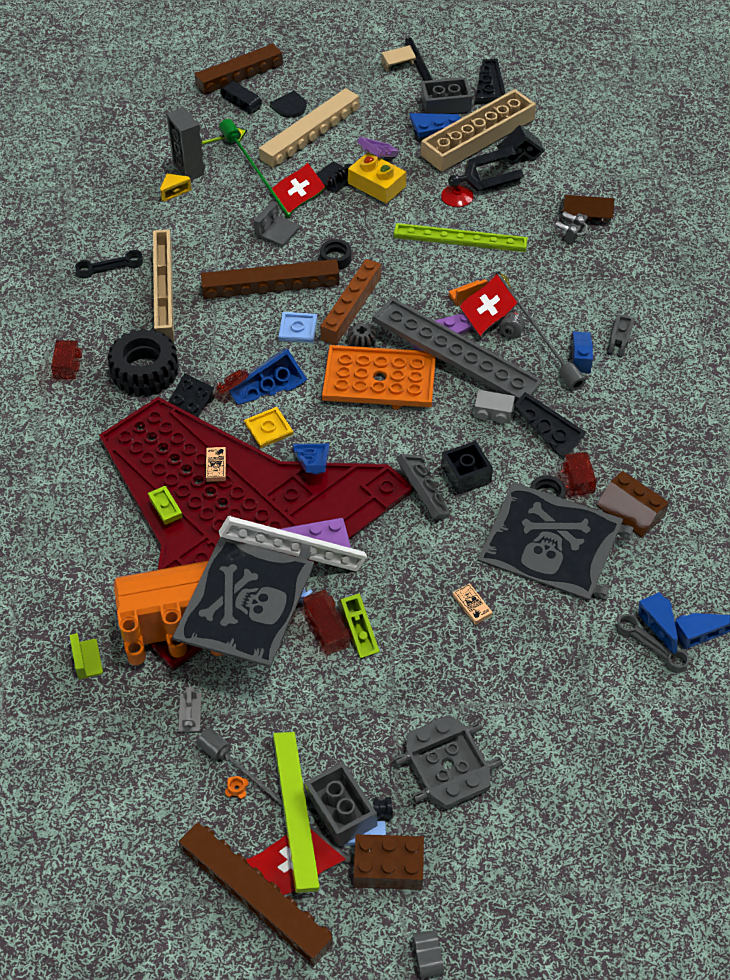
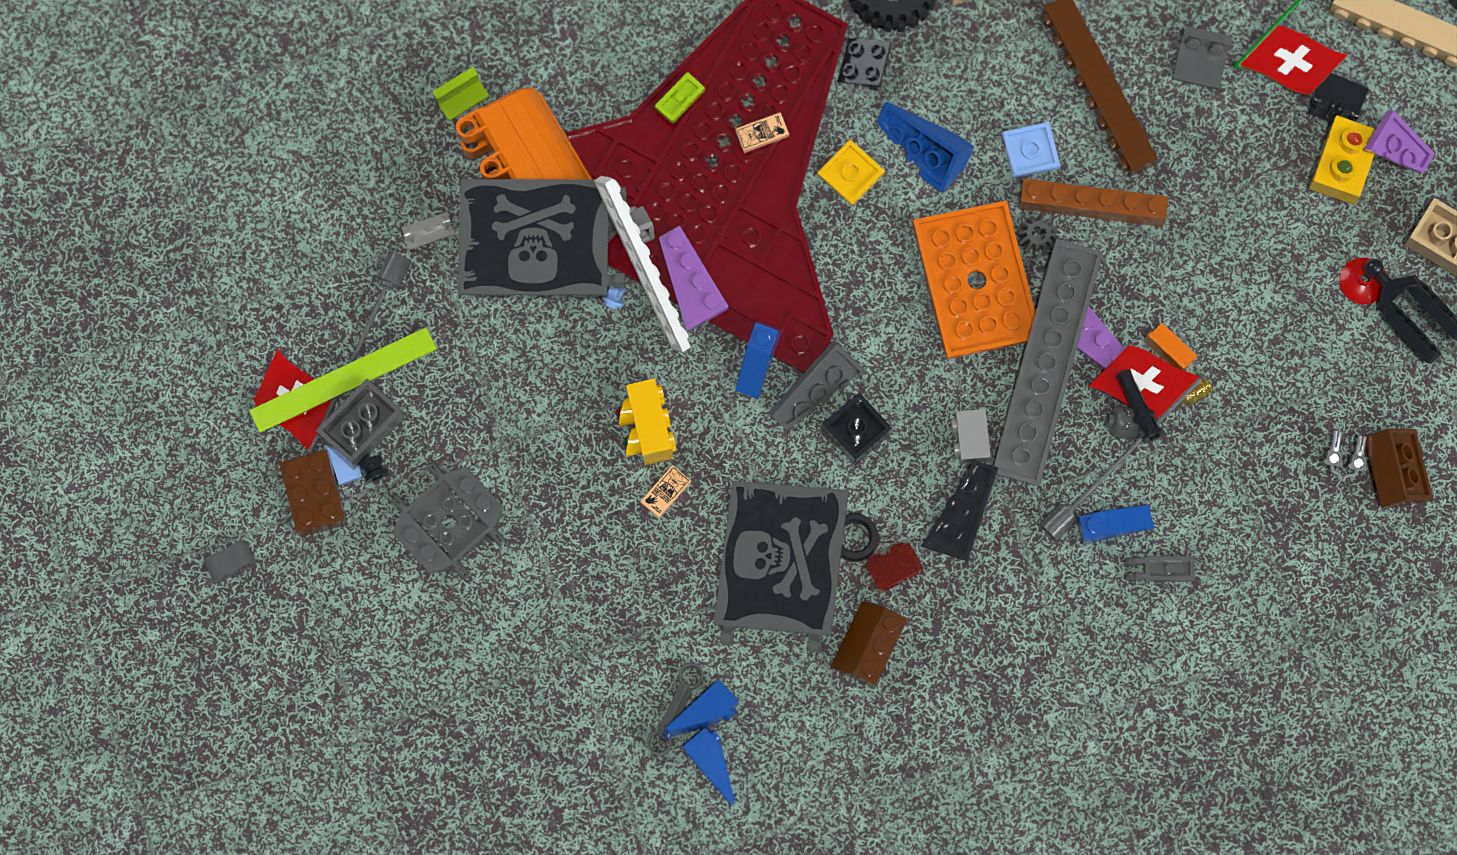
camera: 75 degrees right, 25 degrees up
(232, 380) = (899, 103): clear red tile -> none
(235, 781) = (349, 307): orange plate -> none
(256, 893) = (242, 372): reddish brown brick -> none
(312, 456) = (811, 242): blue wing -> none
(327, 622) = (585, 336): clear red brick -> none
(336, 245) = (1183, 136): black tyre -> none
(357, 621) = (592, 371): lime slope -> none
(390, 510) = (758, 359): none -> blue slope
(416, 592) = (651, 422): none -> yellow piece
(460, 237) = (1276, 310): lime tile -> none
(515, 305) = (1143, 415): none -> black pin

